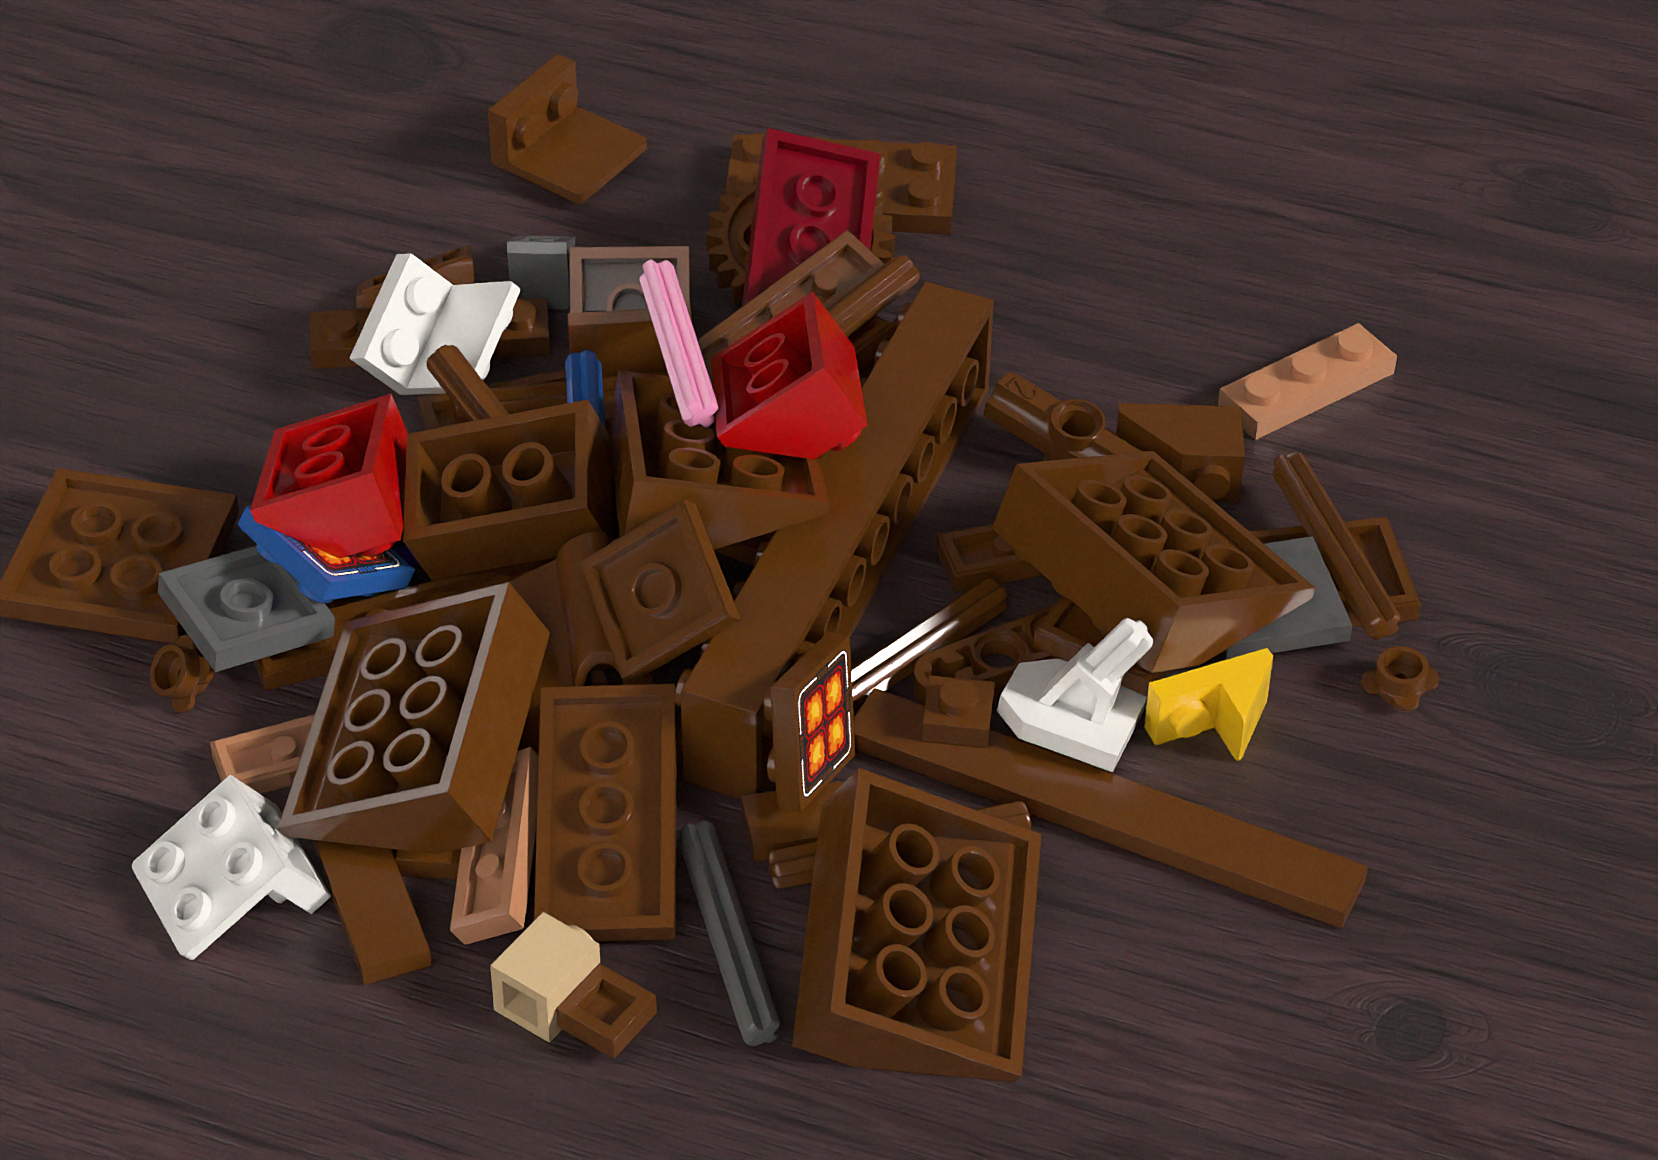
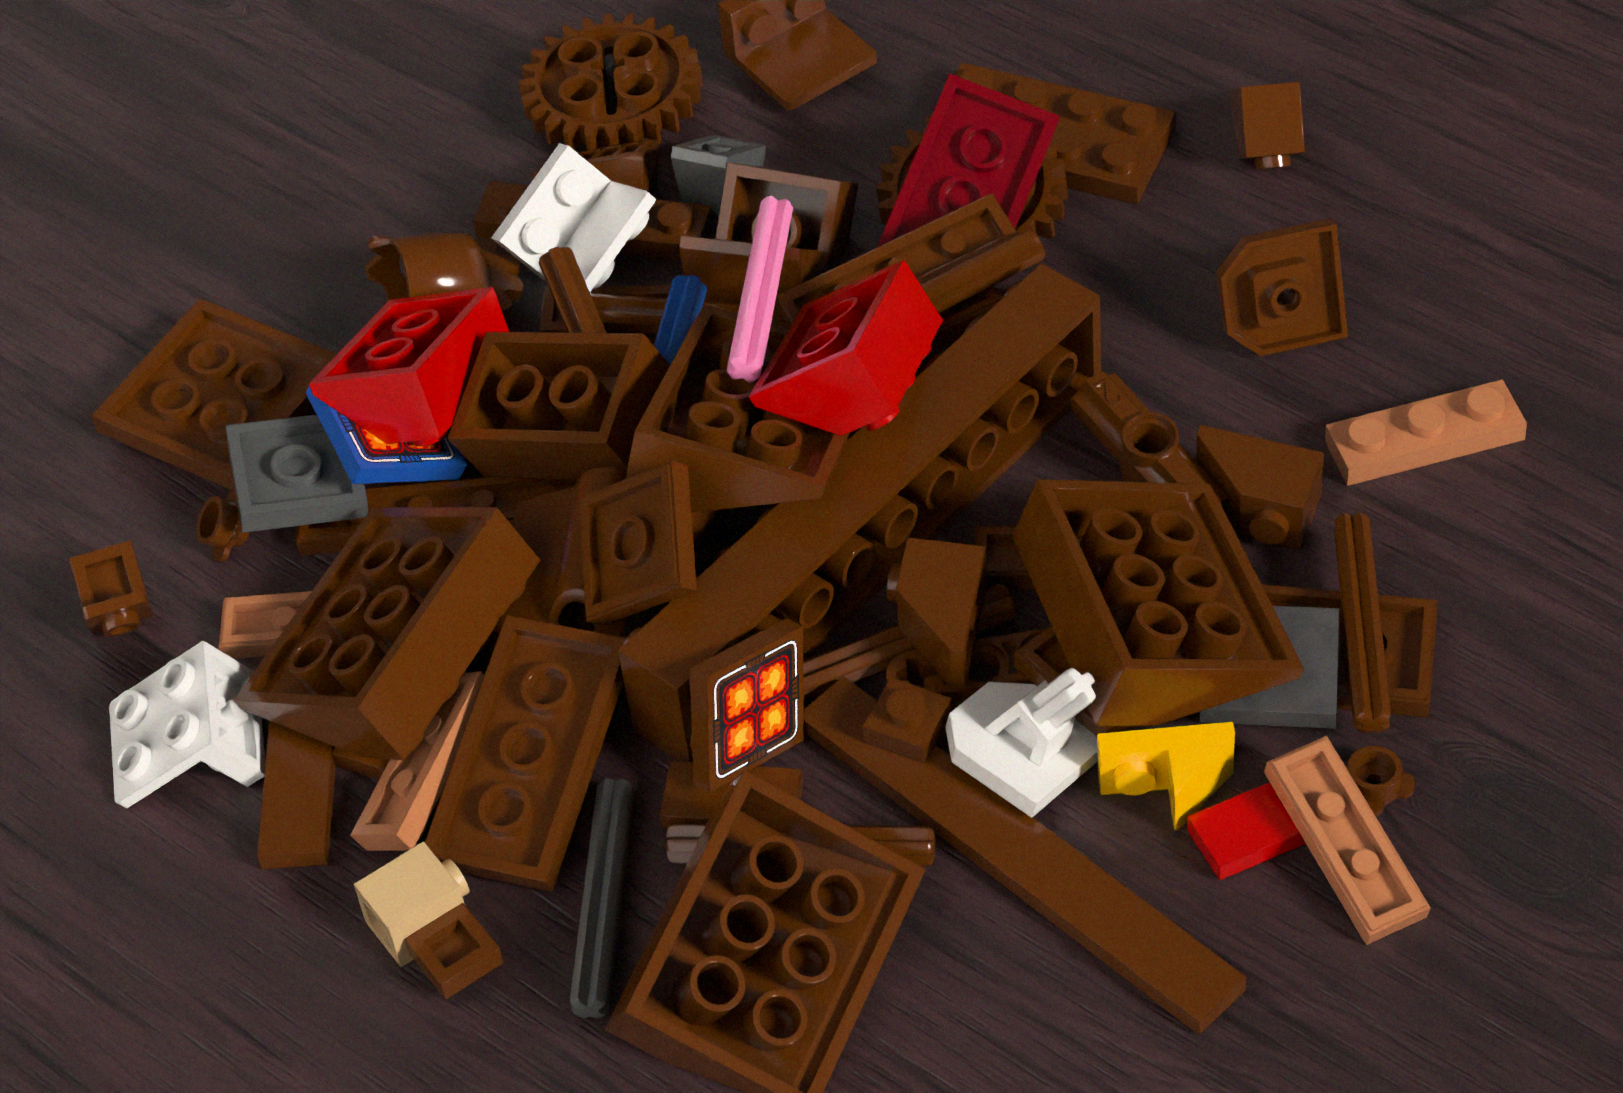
camera: 25 degrees right, 5 degrees up
(90, 755) = (111, 589): none -> reddish brown bracket
(311, 388) = (442, 265): none -> reddish brown piece
(358, 217) = (653, 80): none -> reddish brown gear
(951, 601) = (940, 602): none -> reddish brown slope
(1049, 139) = (1268, 123): none -> reddish brown slope
(1139, 275) = (1284, 289): none -> reddish brown piece
(1318, 735) = (1243, 831): none -> red tile
(1404, 731) = (1346, 840): none -> nougat tile

